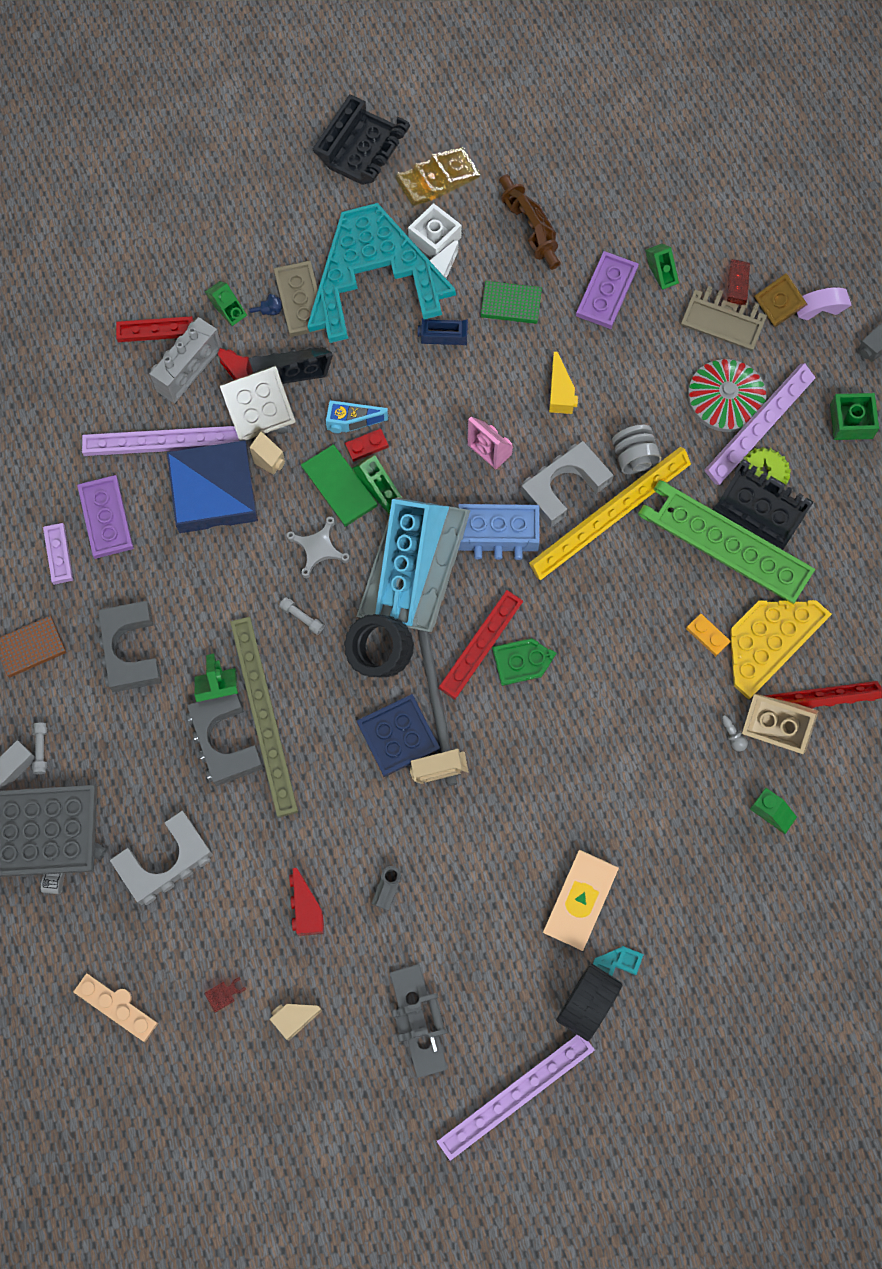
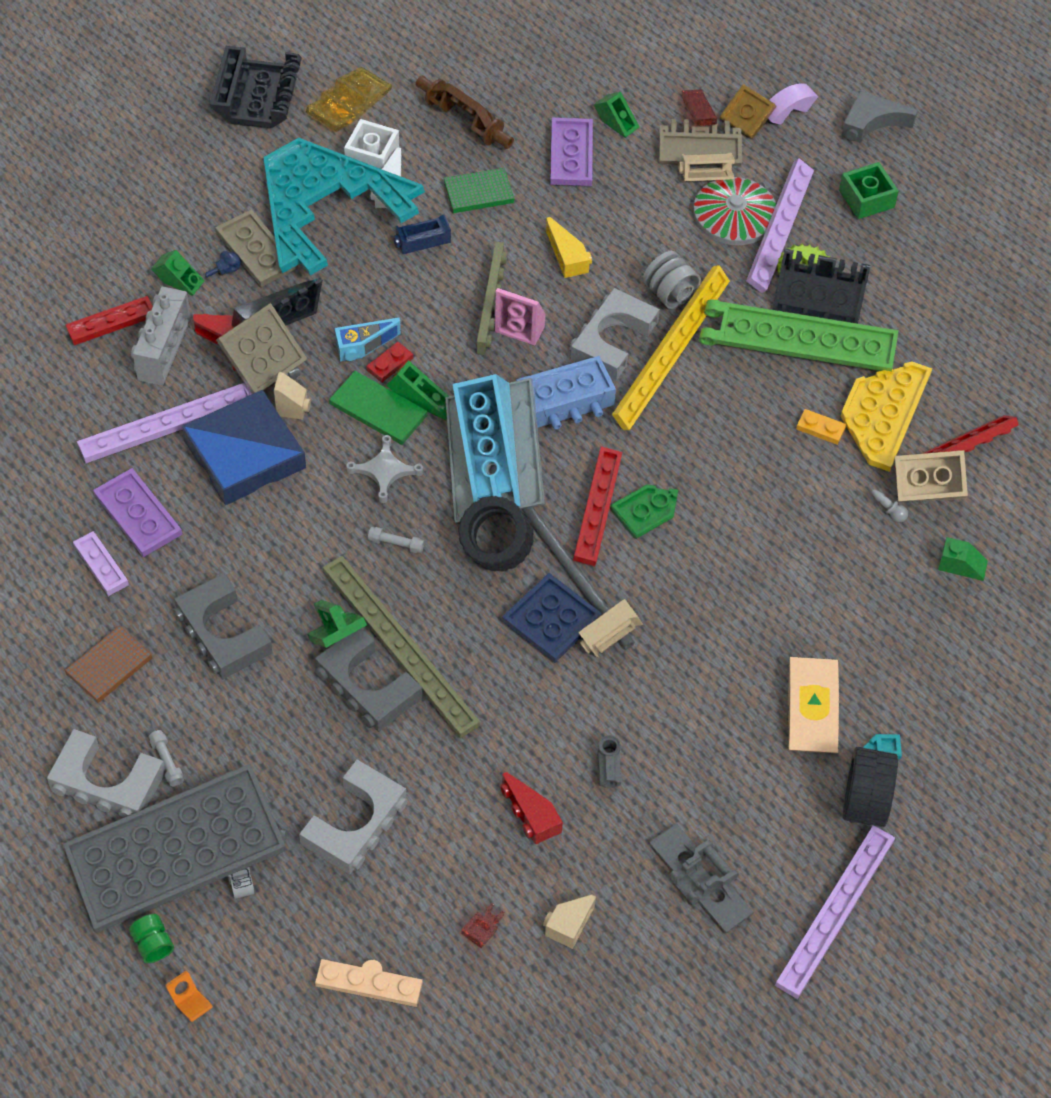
camera: 25 degrees left, 15 degrees down
(480, 406) = (487, 322): none -> olive plate
(719, 345) = (707, 173): none -> tan window

